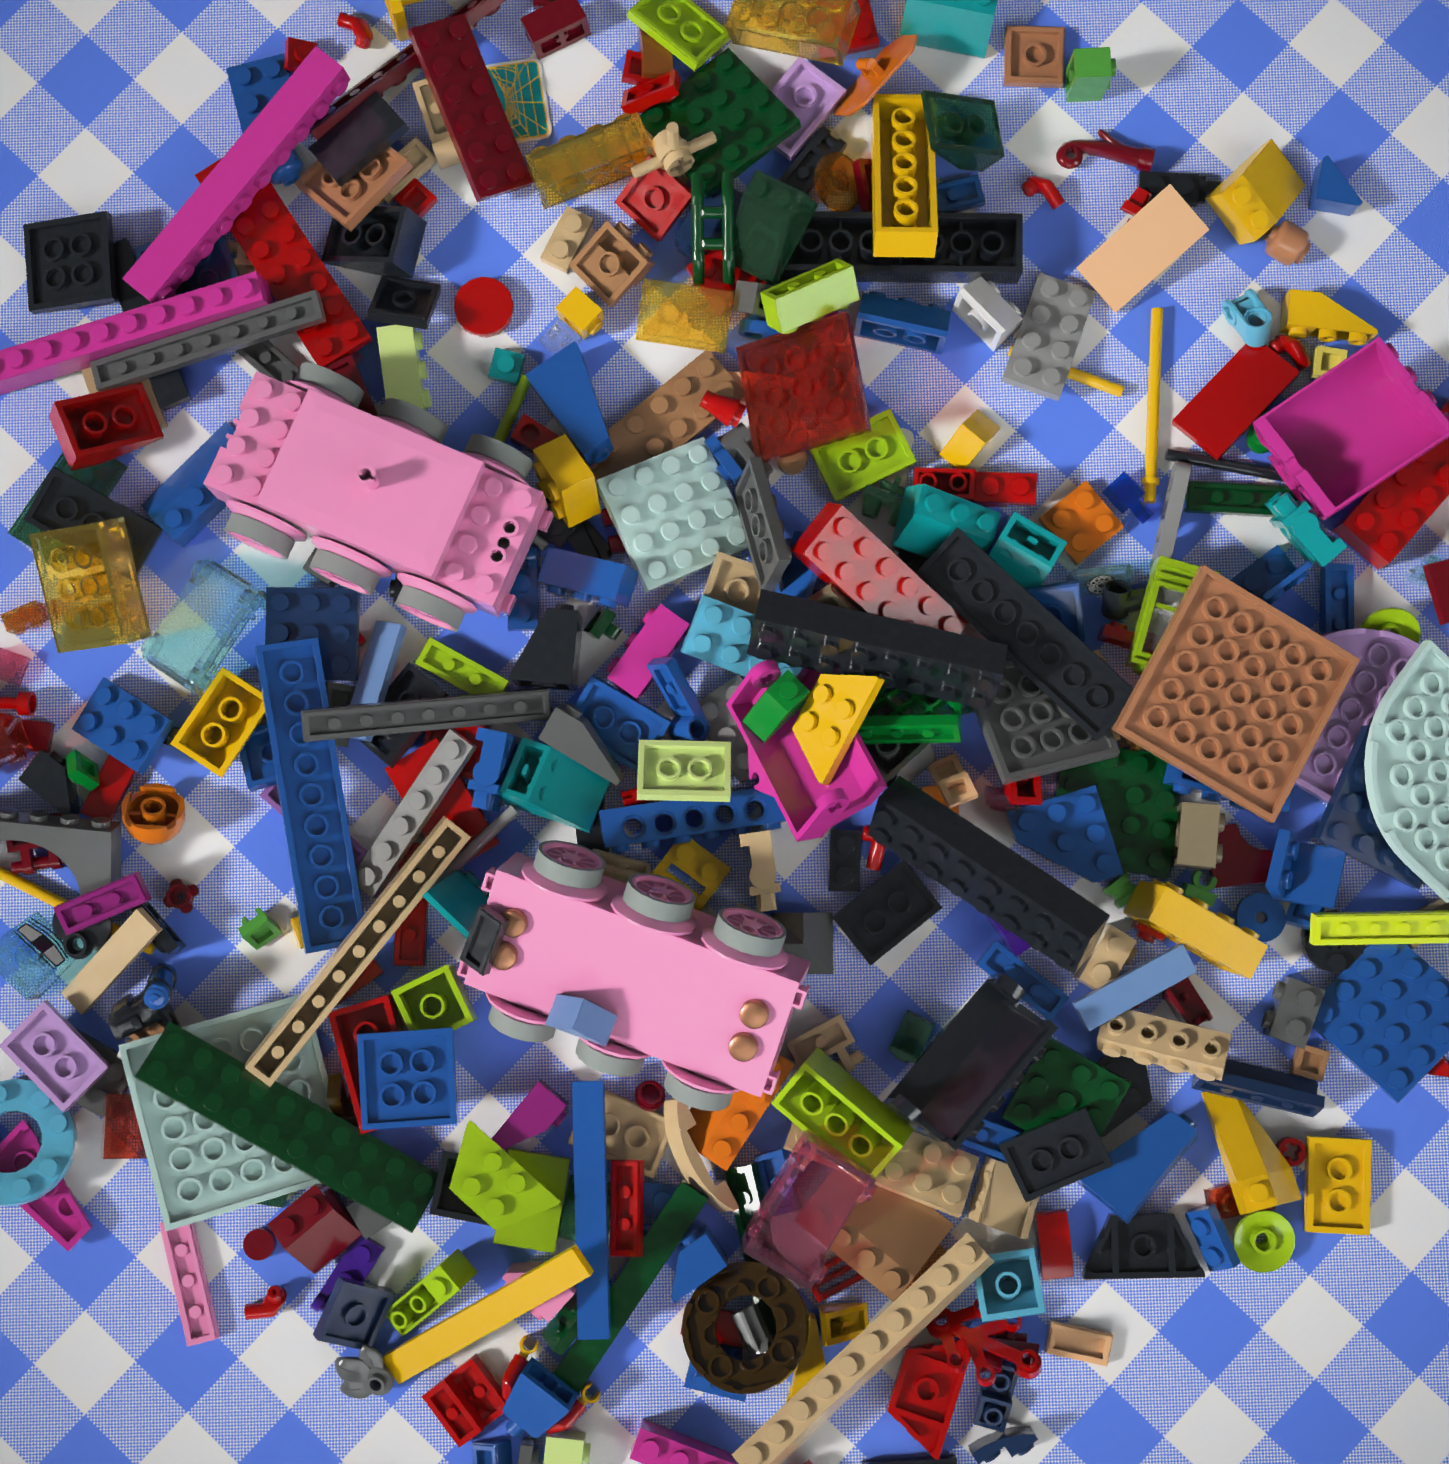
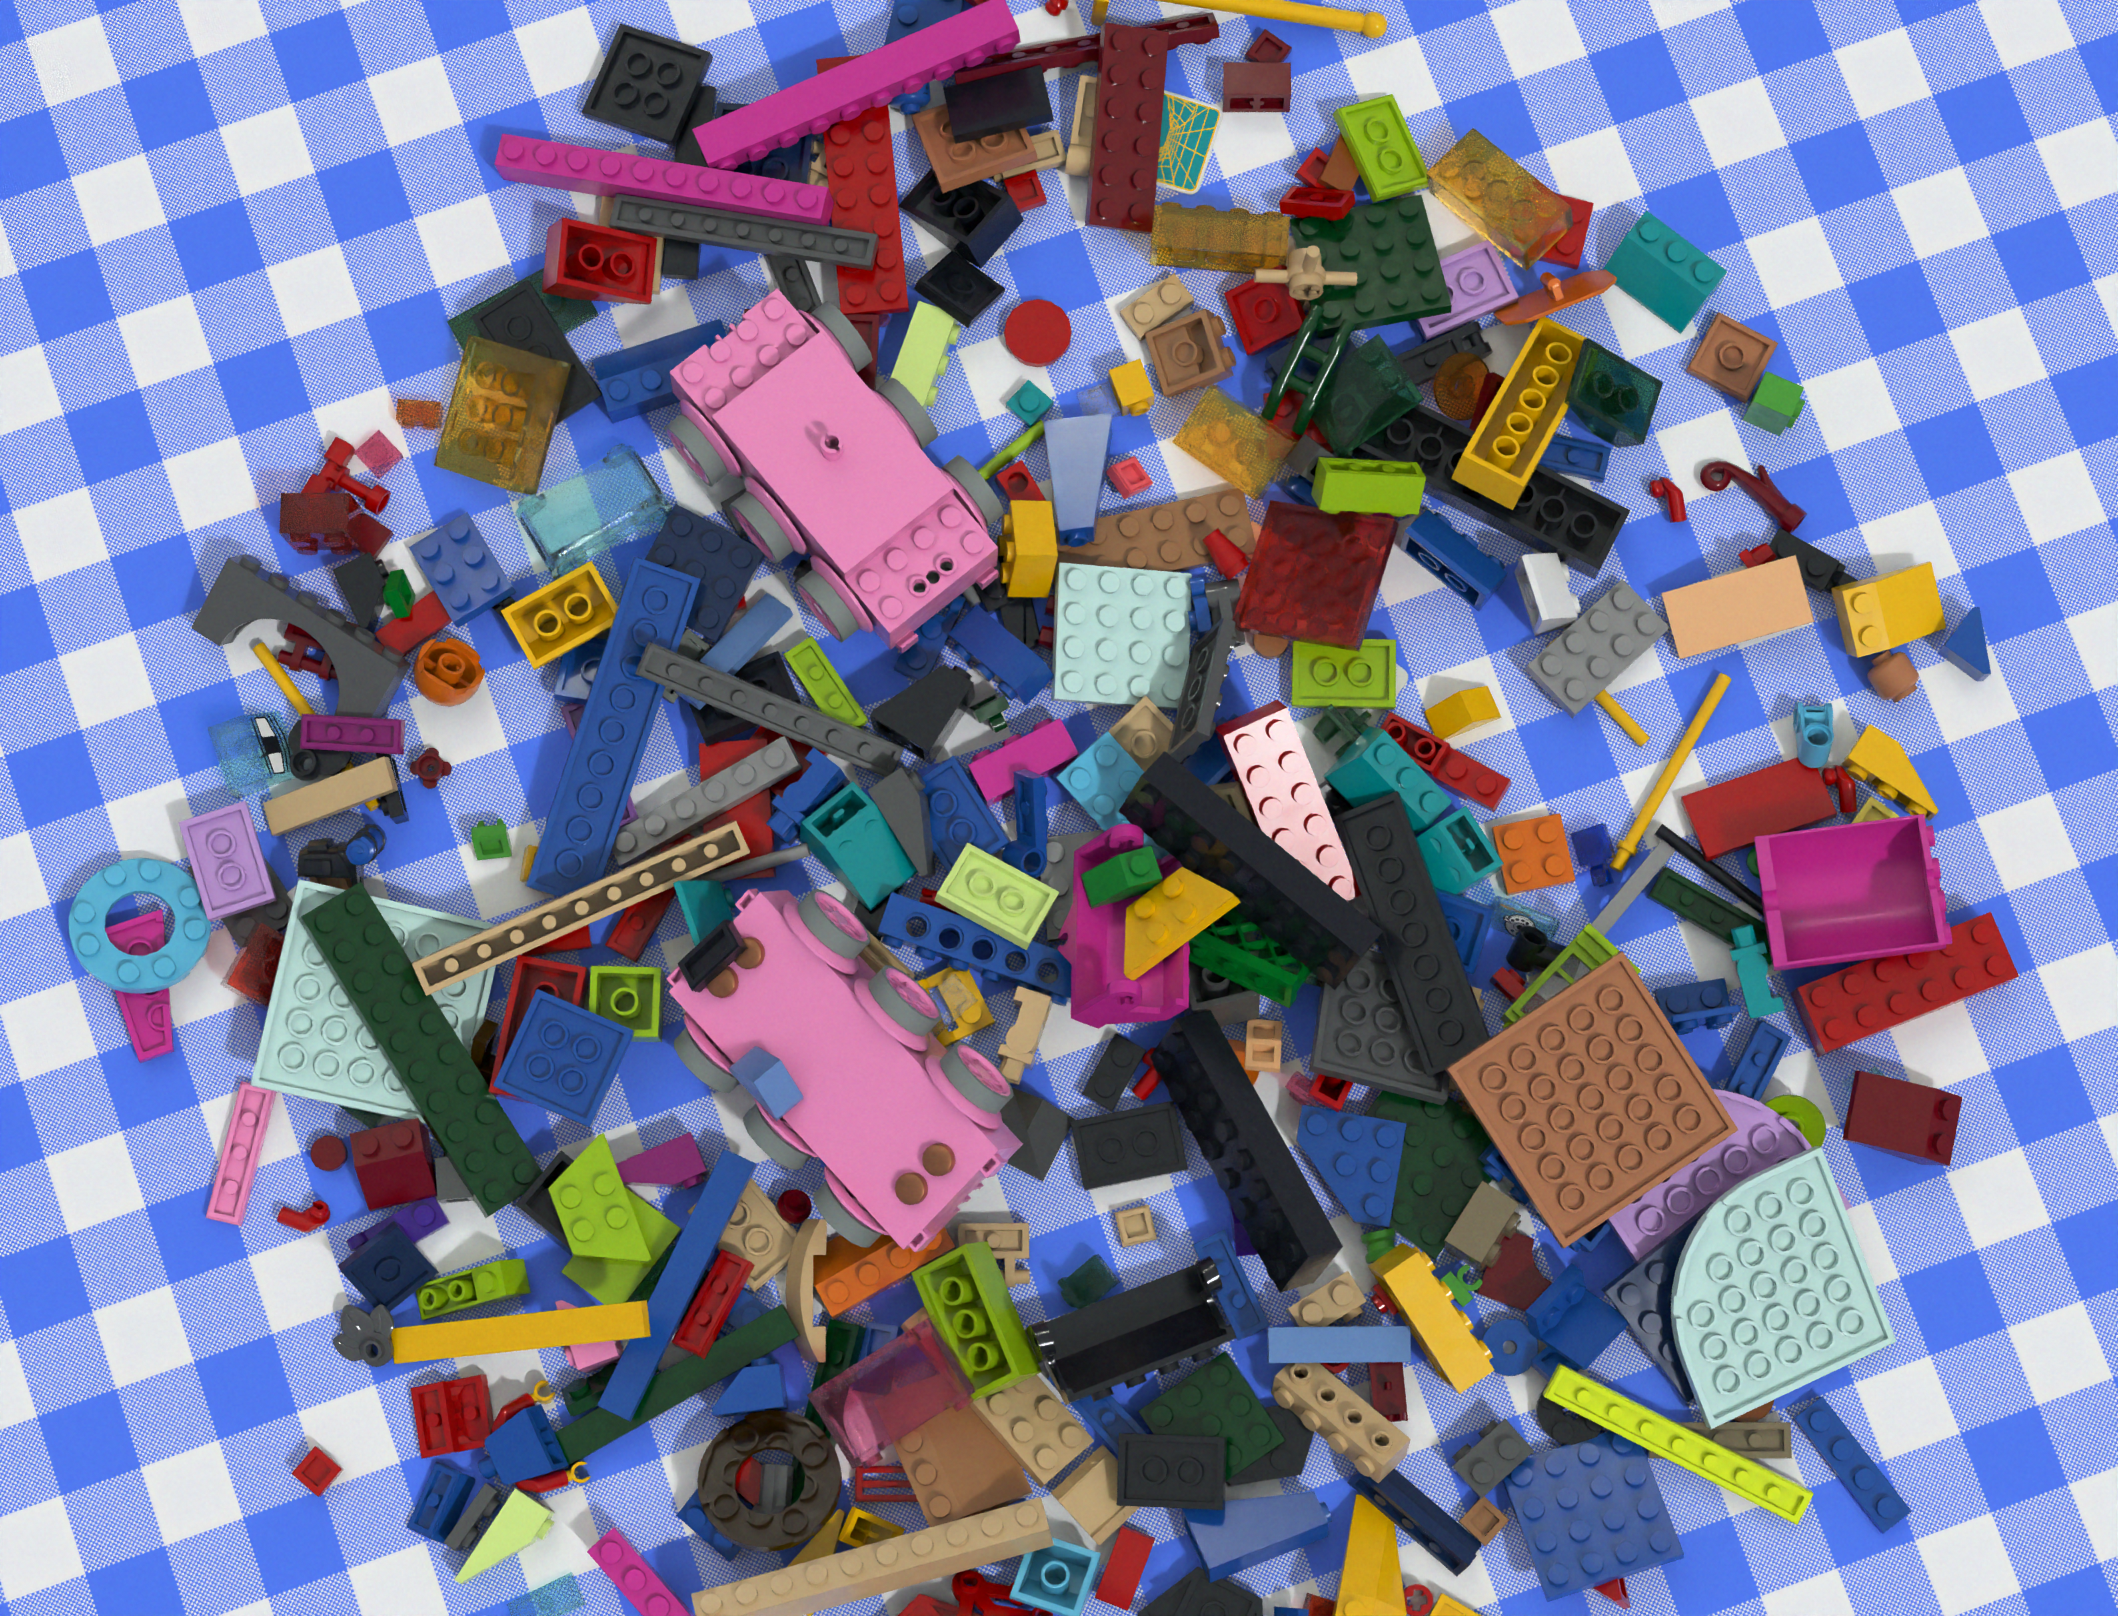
camera: 25 degrees right, 5 degrees down
(615, 385) = (1129, 477): none -> coral tile
(690, 869) = (952, 1000): none -> clear tile
(923, 972) = (1135, 1226): none -> tan tile

